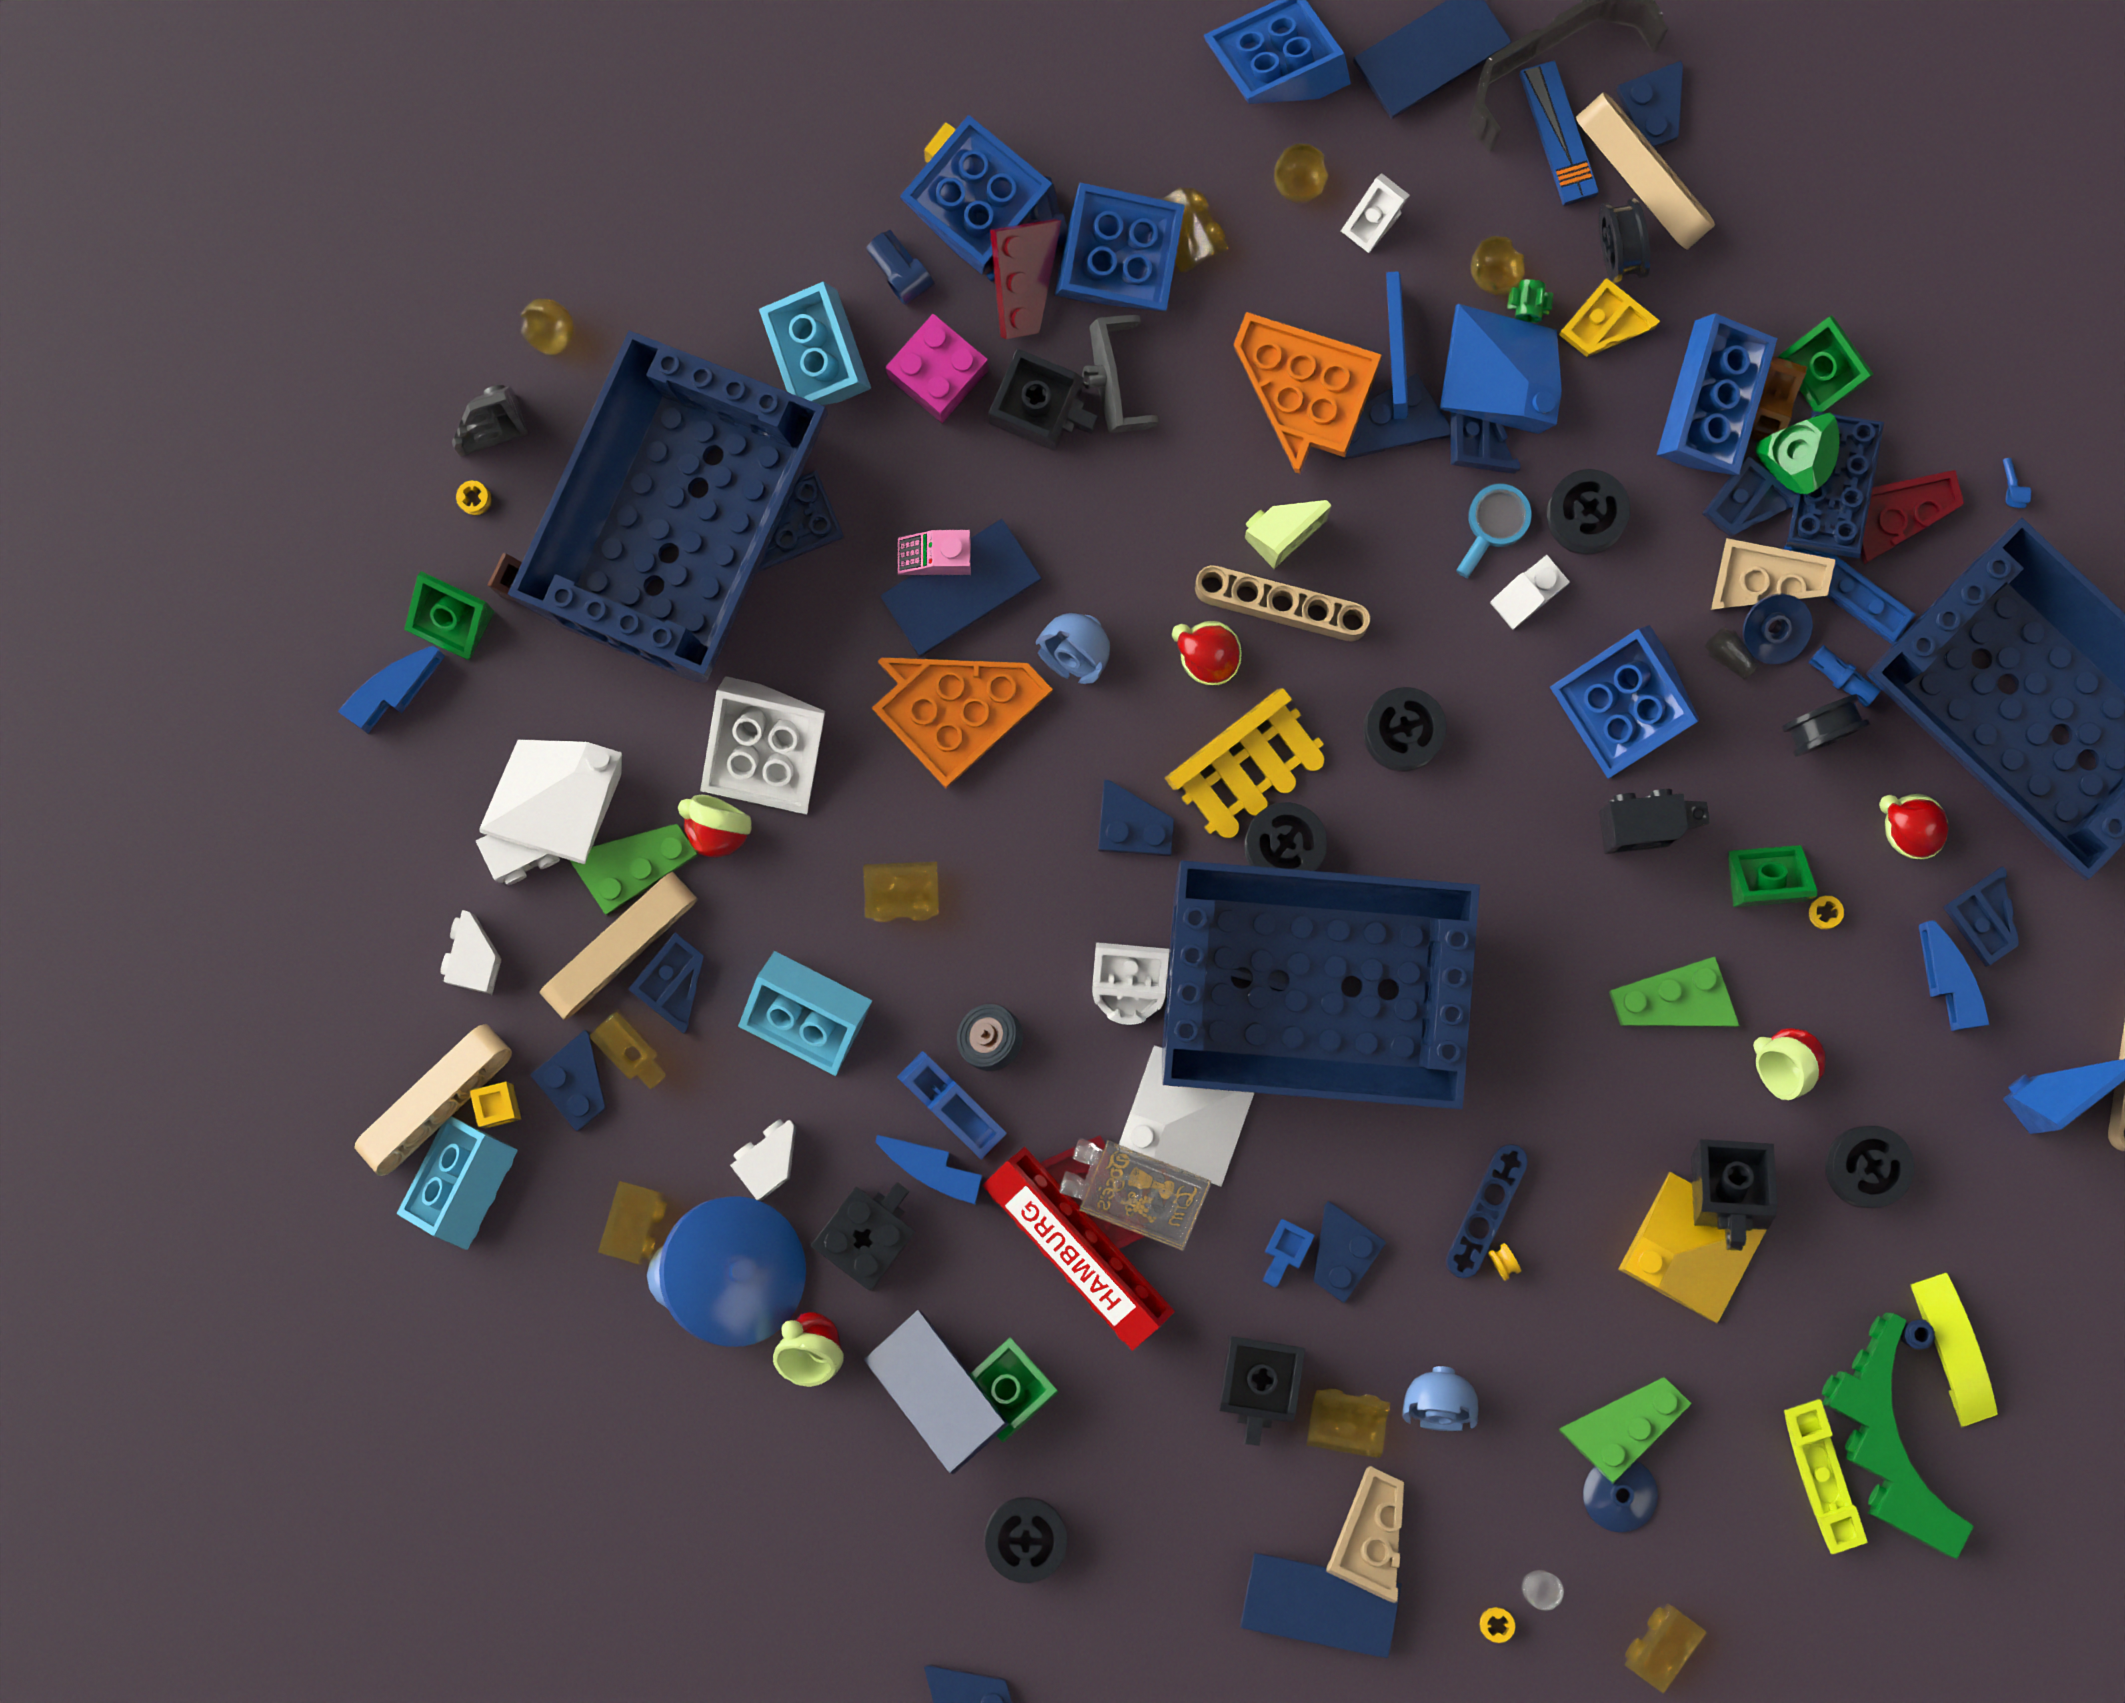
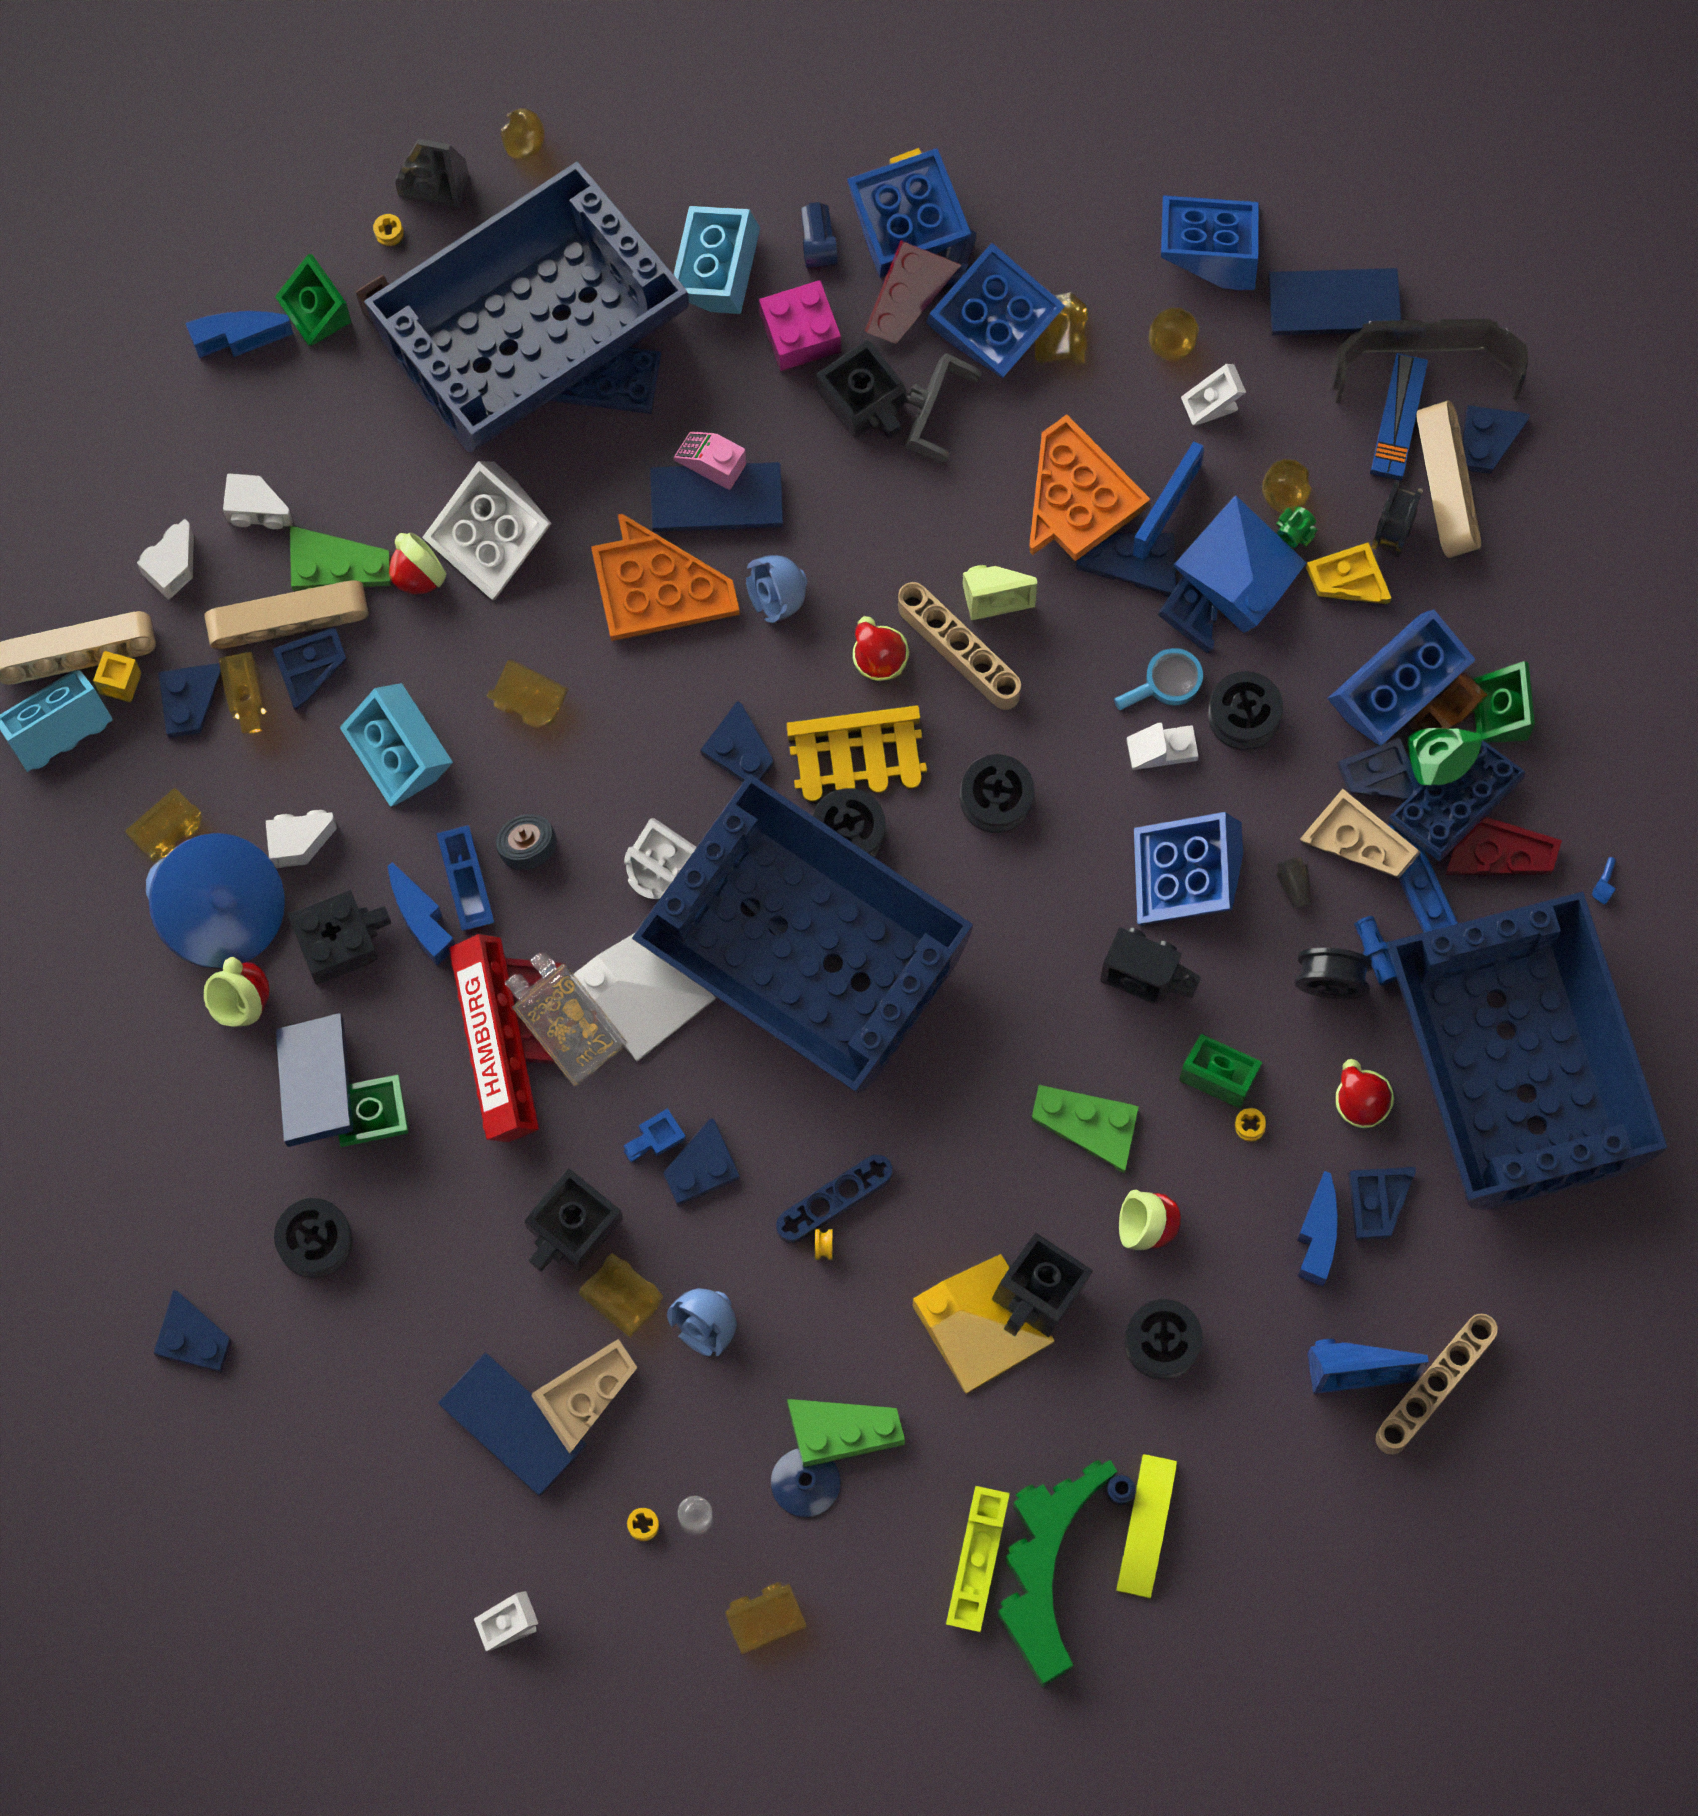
camera: 30 degrees right, 10 degrees down
(554, 796) = (308, 476): white slope -> none
(1788, 636) = (1350, 896): dark blue dish -> none

